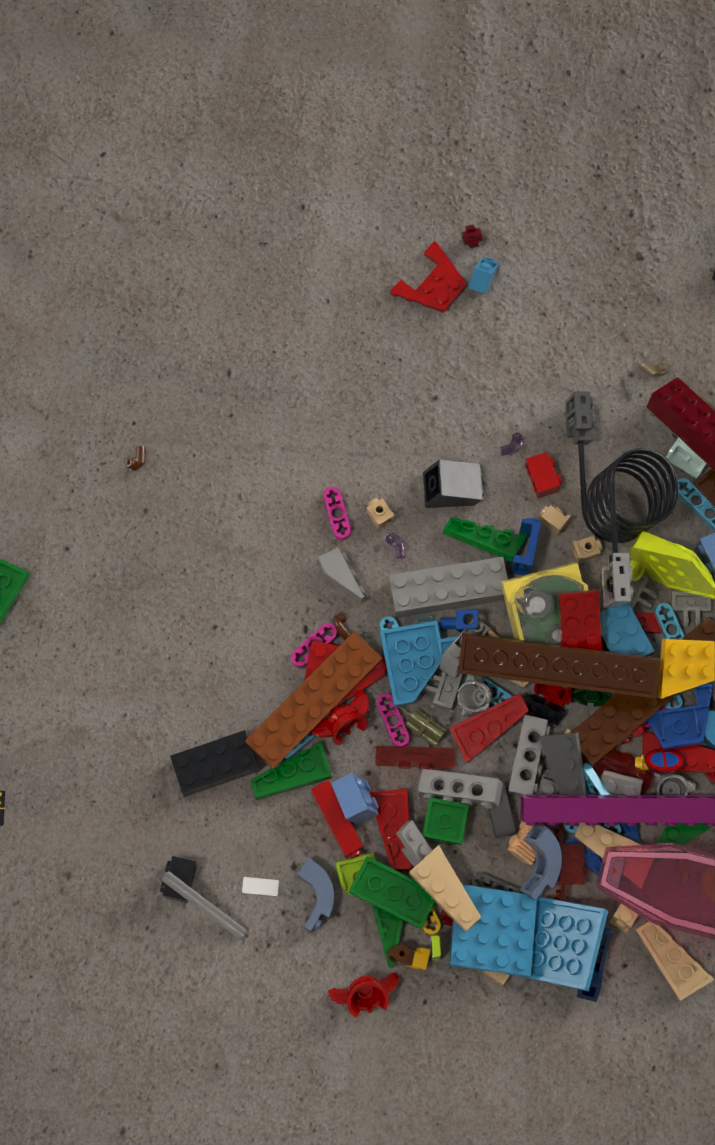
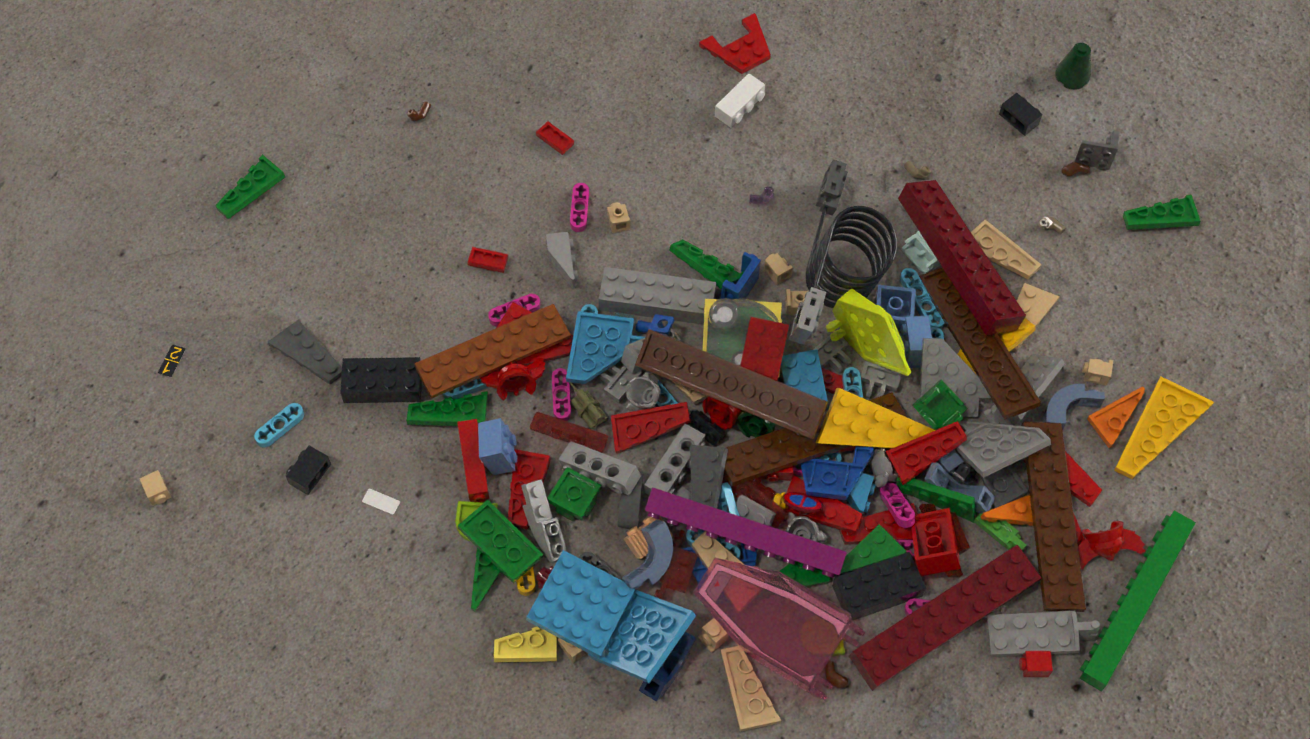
camera: 15 degrees right, 10 degrees down
(38, 947) = (155, 488): none -> tan brick
(124, 754) = (307, 352): none -> dark grey wing
(129, 857) = (264, 430): none -> medium azure beam
(203, 904) = (319, 496): light grey axle -> none
(268, 600) = (487, 259): none -> red plate
(284, 445) = (555, 138): none -> red plate
(319, 880) = (437, 523): sand blue arch -> none
(340, 627) = (544, 296): reddish brown arm -> none
(365, 993) = (438, 623): red helmet -> none
(397, 543) = (624, 246): clear purple arm -> none
(414, 959) = (492, 605): leg -> none
(435, 948) = (520, 603): lime tile -> none
(442, 884) = (548, 547): tan wing -> none
(452, 484) = (694, 211): slope -> none
(454, 987) = (526, 647): none -> light yellow wing
(455, 346) = (740, 100): none -> white brick
(471, 236) = (789, 18): dark red gear -> none
(483, 275) = (788, 51): dark azure slope -> none
(542, 474) = (780, 228): red brick -> none
(683, 526) = (897, 302): none -> medium blue brick

